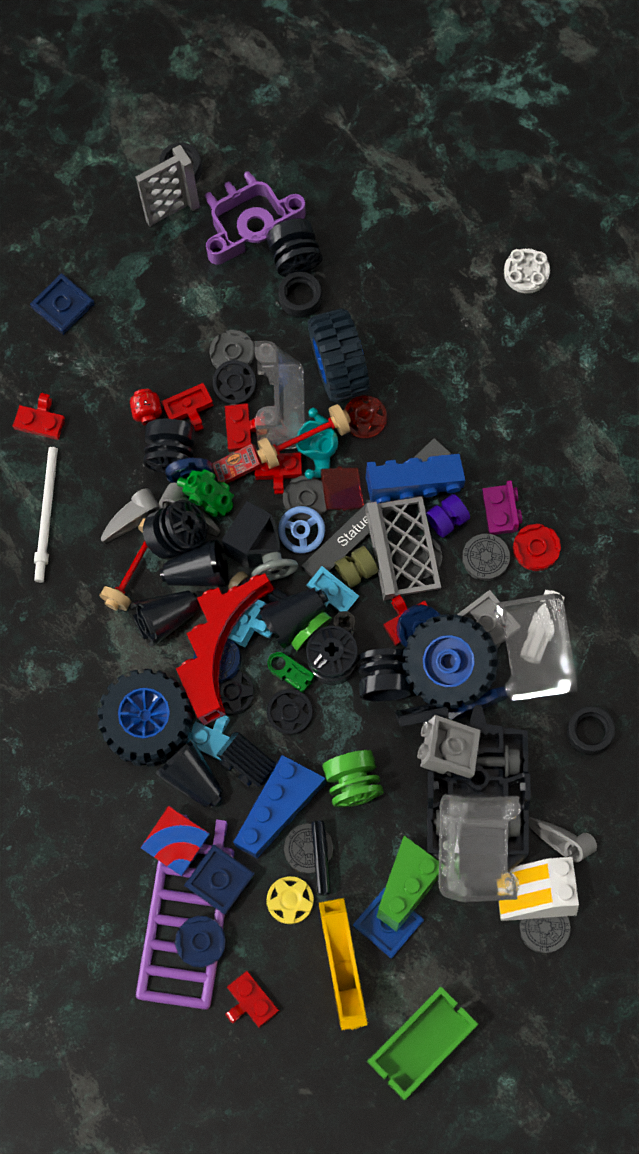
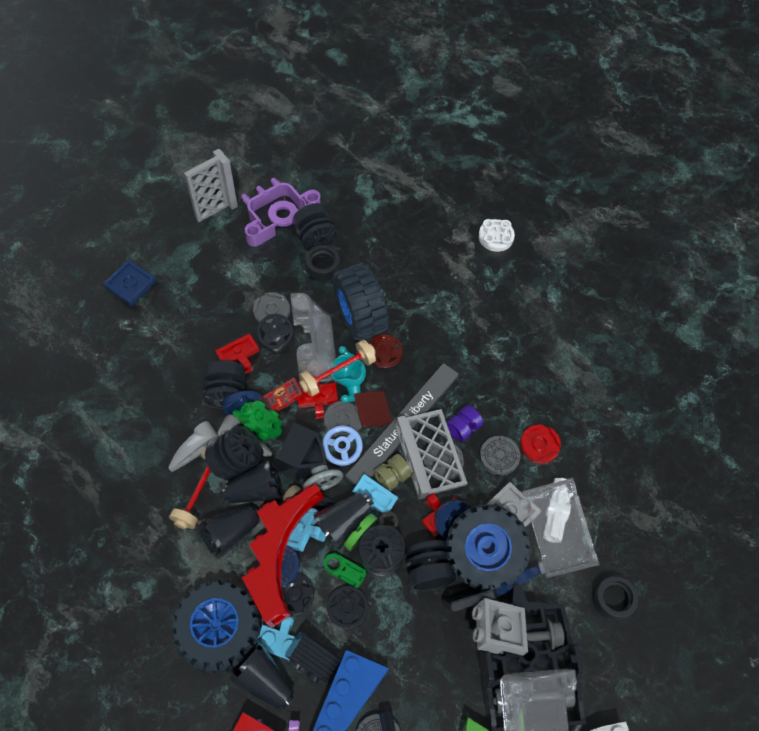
camera: 15 degrees left, 10 degrees down
(39, 420) = (112, 374): red plate -> none
(41, 556) = (116, 487): white bar -> none
(145, 406) = (201, 354): red head -> none
(239, 426) = (282, 366): red plate -> none
(351, 773) = (413, 665): bright green wheel -> none
(414, 478) = (432, 394): blue wedge -> none
(501, 509) = (507, 414): magenta bracket -> none
(564, 841) = (618, 709): light grey piece -> none

